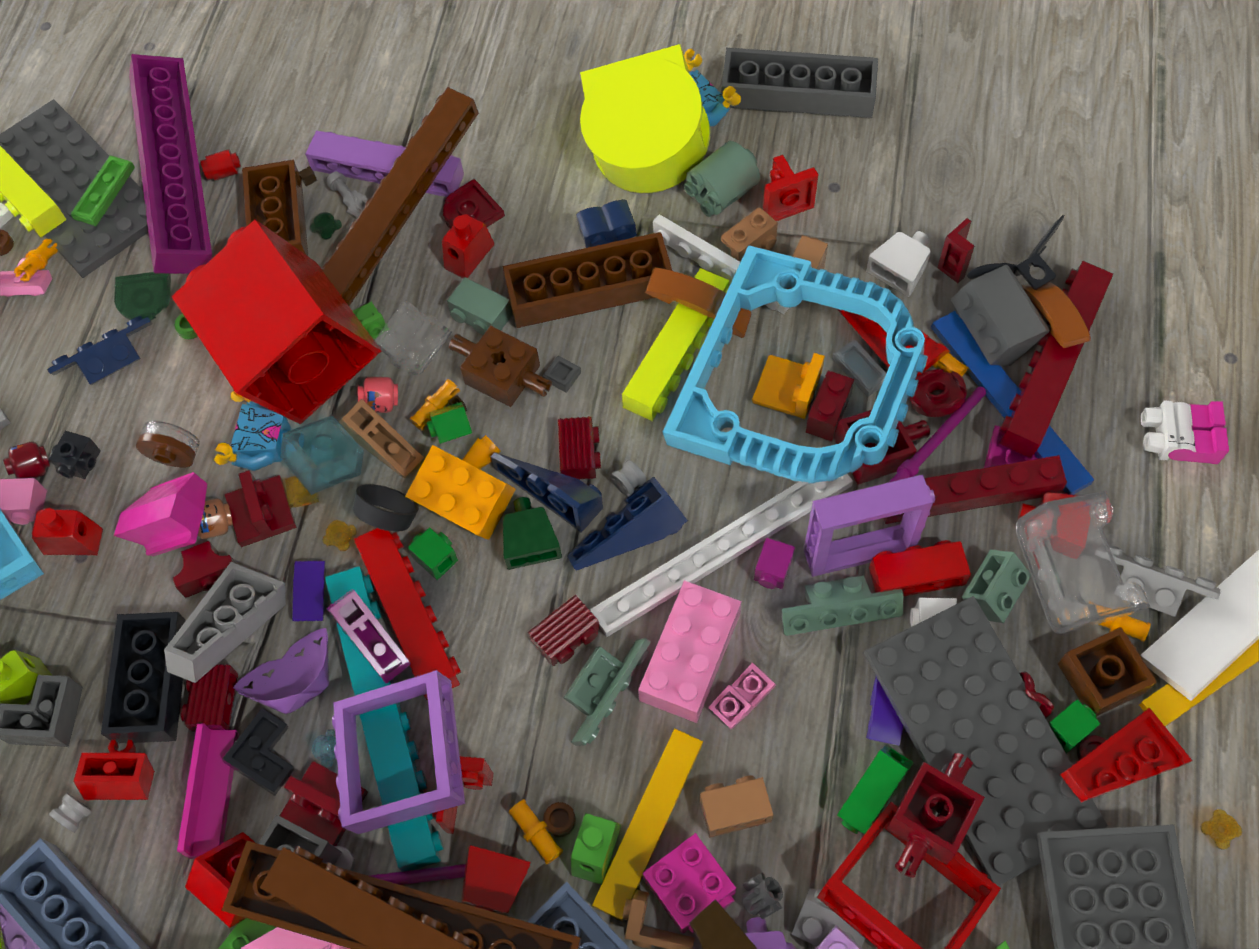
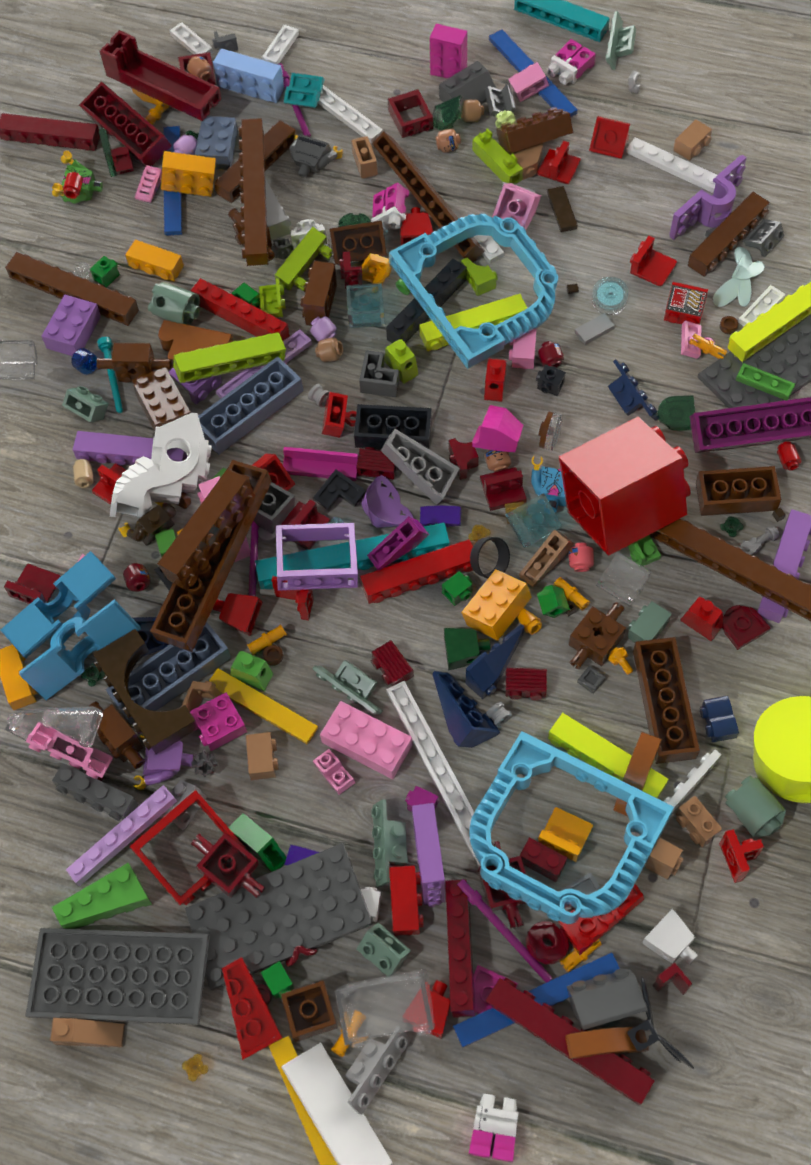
camera: 95 degrees right, 0 degrees up
(532, 337) = (618, 656): none -> light orange plate

